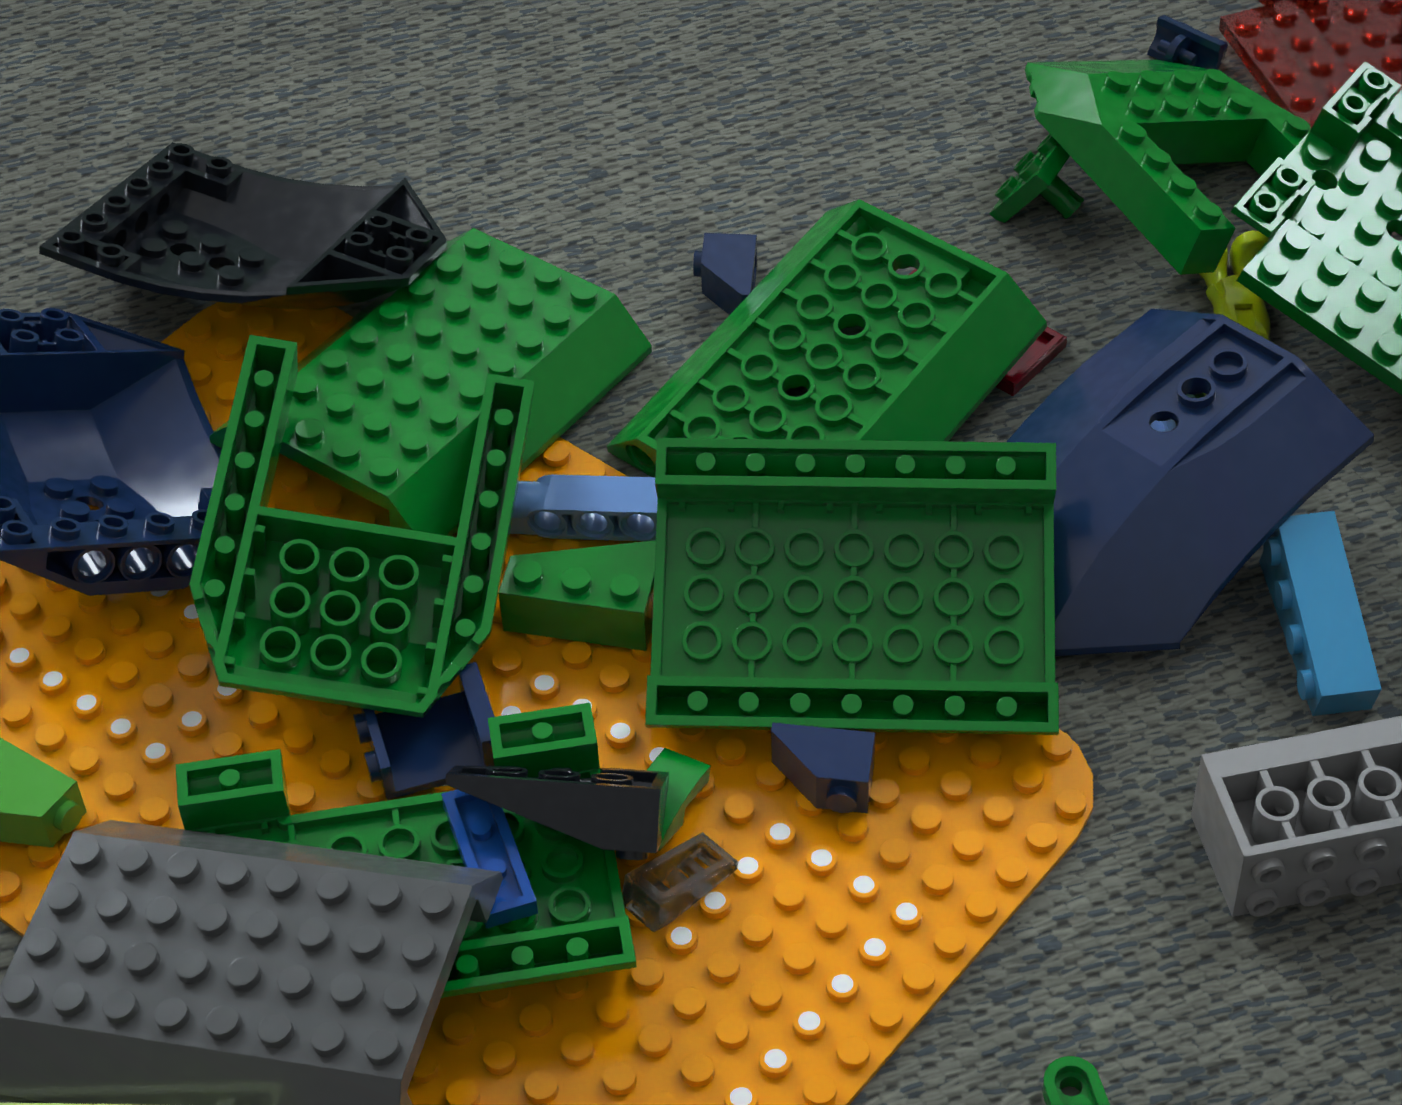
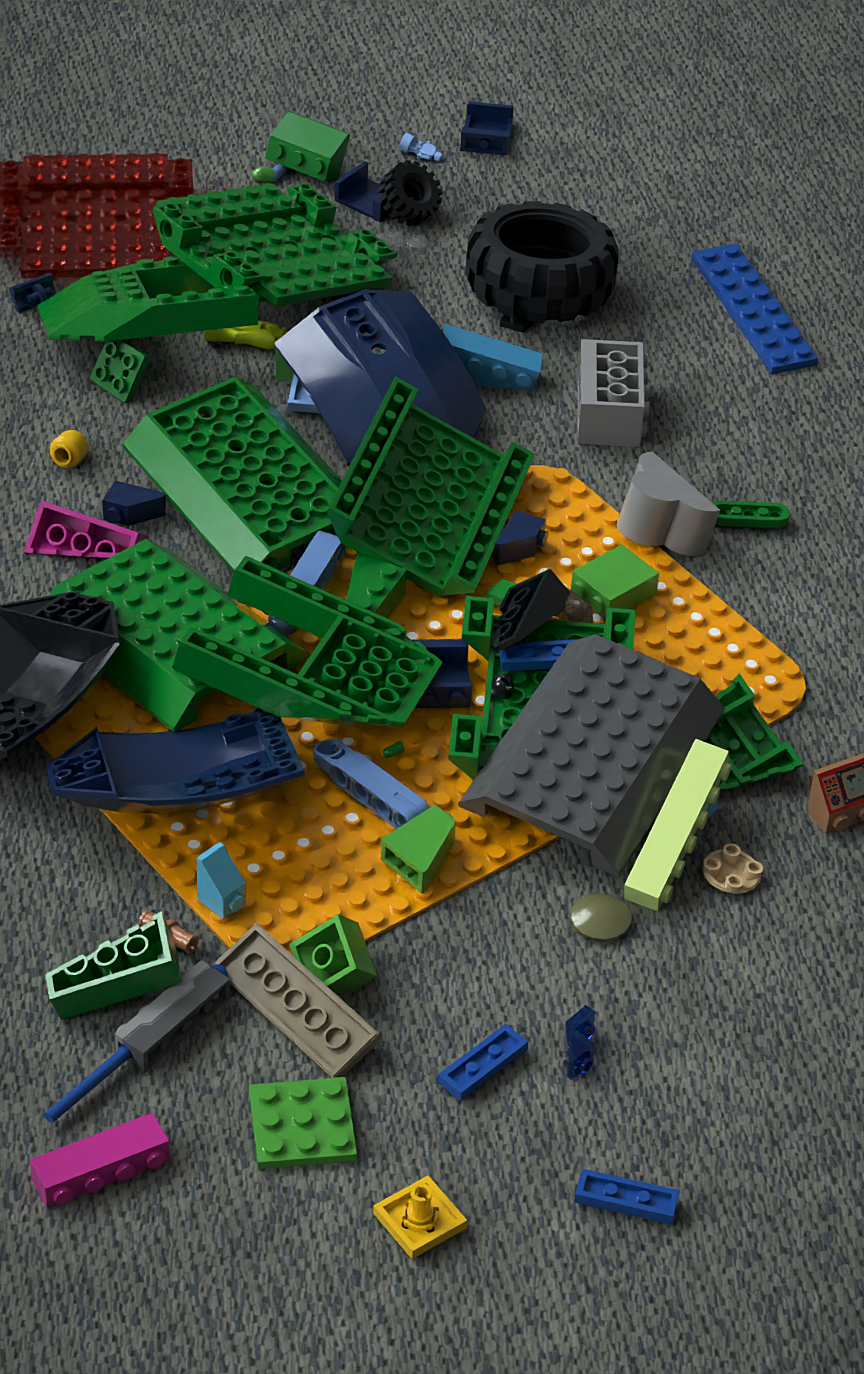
camera: 80 degrees left, 5 degrees down
(132, 705) = (368, 783): none -> medium blue piece
(244, 716) = (393, 750): none -> green piece
(406, 819) = (498, 686): none -> black hinge
(636, 238) = (75, 534): none -> dark pink wedge
(758, 933) = (615, 581): none -> bright green brick
(830, 178) = (69, 449): none -> yellow head
(990, 952) = (666, 509): none -> light grey brick

